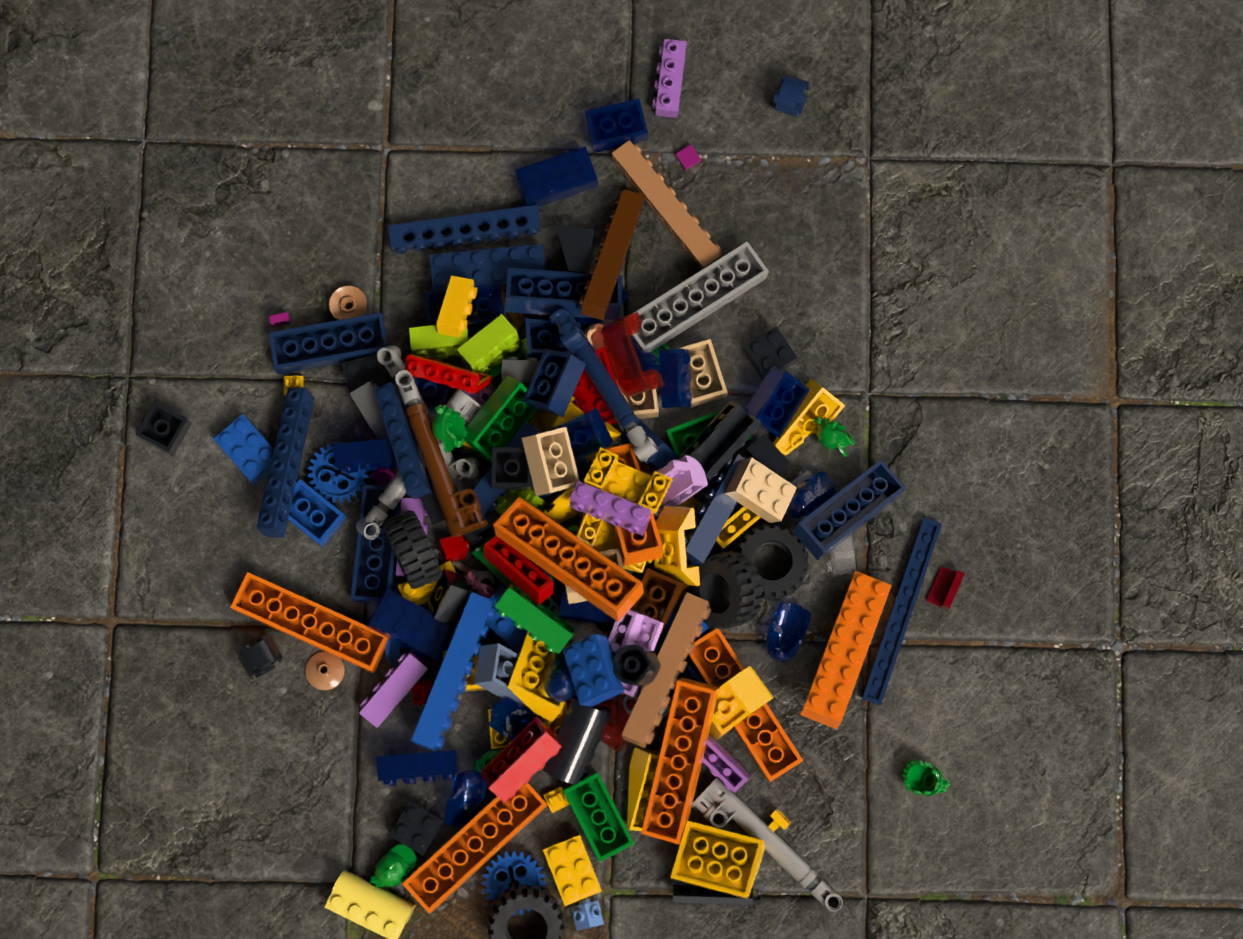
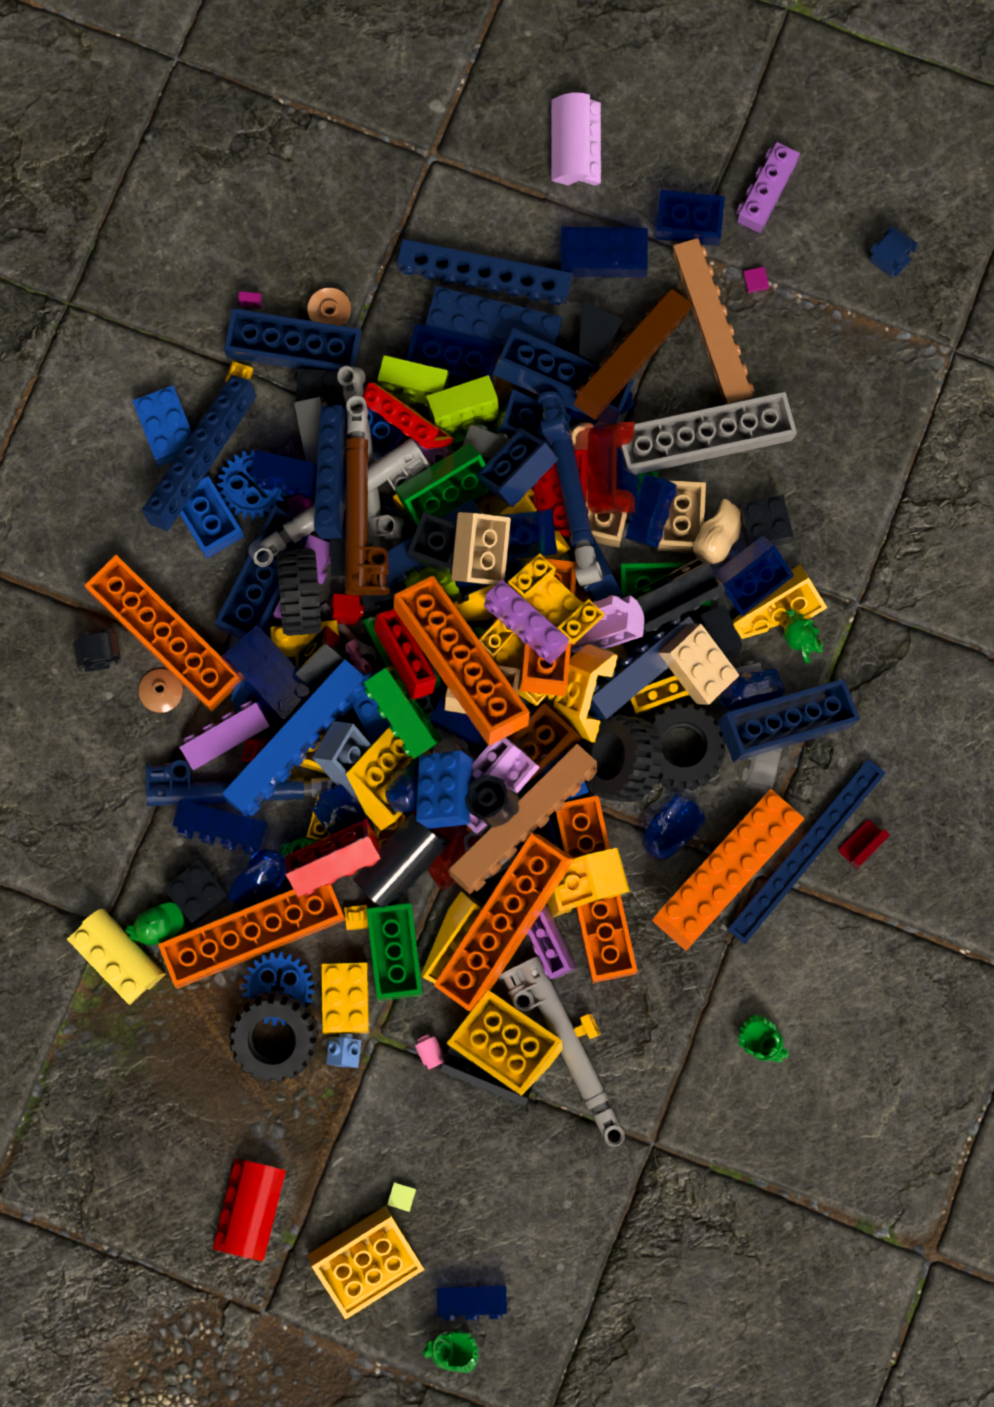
camera: 20 degrees right, 0 degrees up
(163, 429) = (83, 372): black brick -> none
(363, 750) = (167, 789): none -> dark blue piece
(449, 427) = (385, 475): green hair -> none
(456, 306) = (442, 350): yellow brick -> none
(499, 93) = (576, 139): none -> lavender brick
(657, 888) = (429, 1051): none -> bright pink brick
(736, 377) = (719, 533): none -> tan hair

